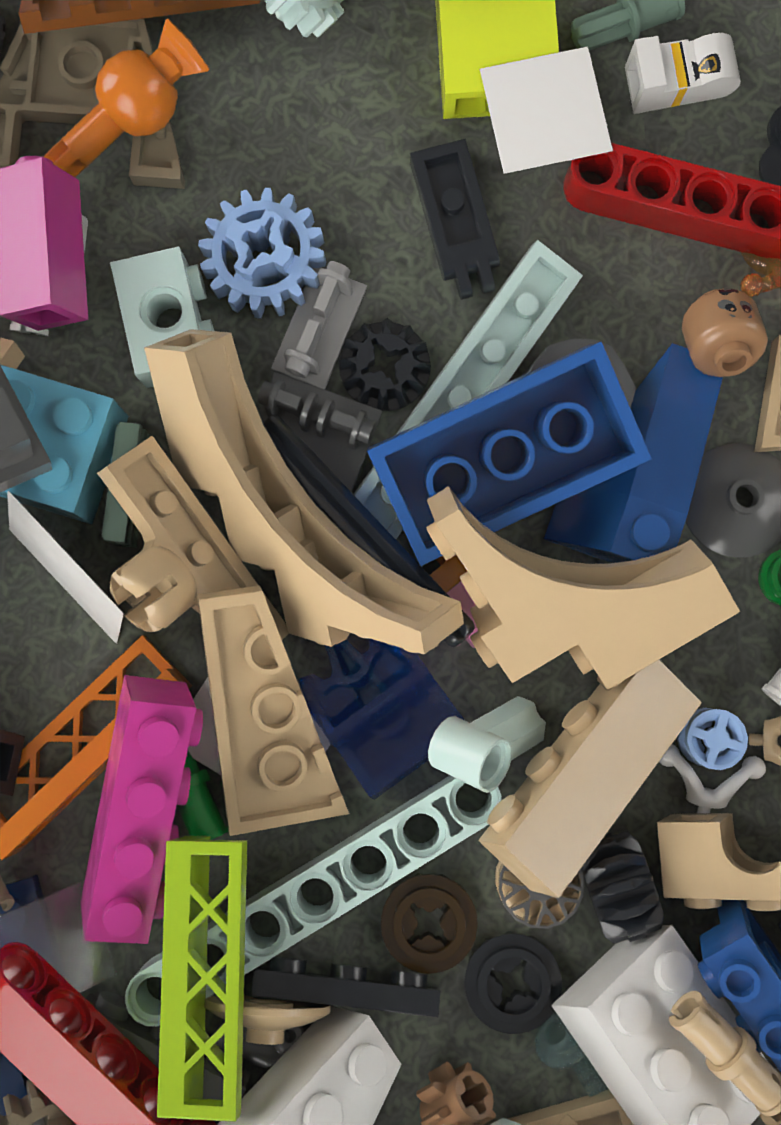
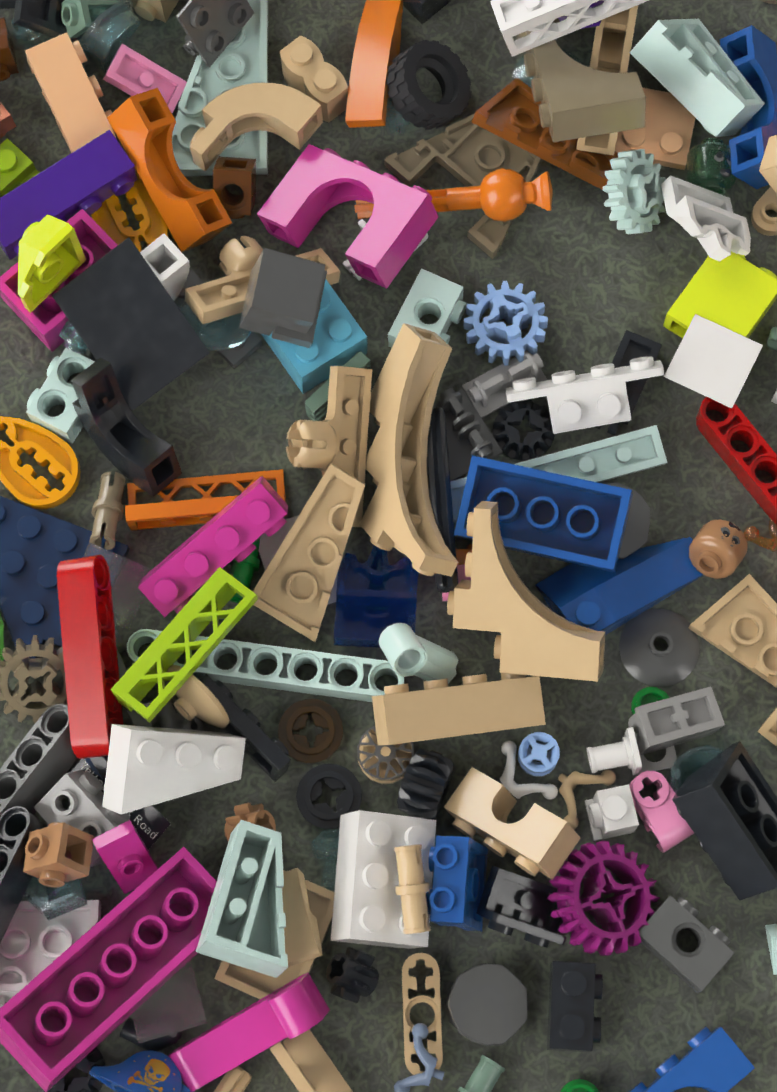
camera: 40 degrees right, 10 degrees down
(64, 569) = (272, 403): white sticker -> none
(435, 267) = (586, 398): none -> white bracket

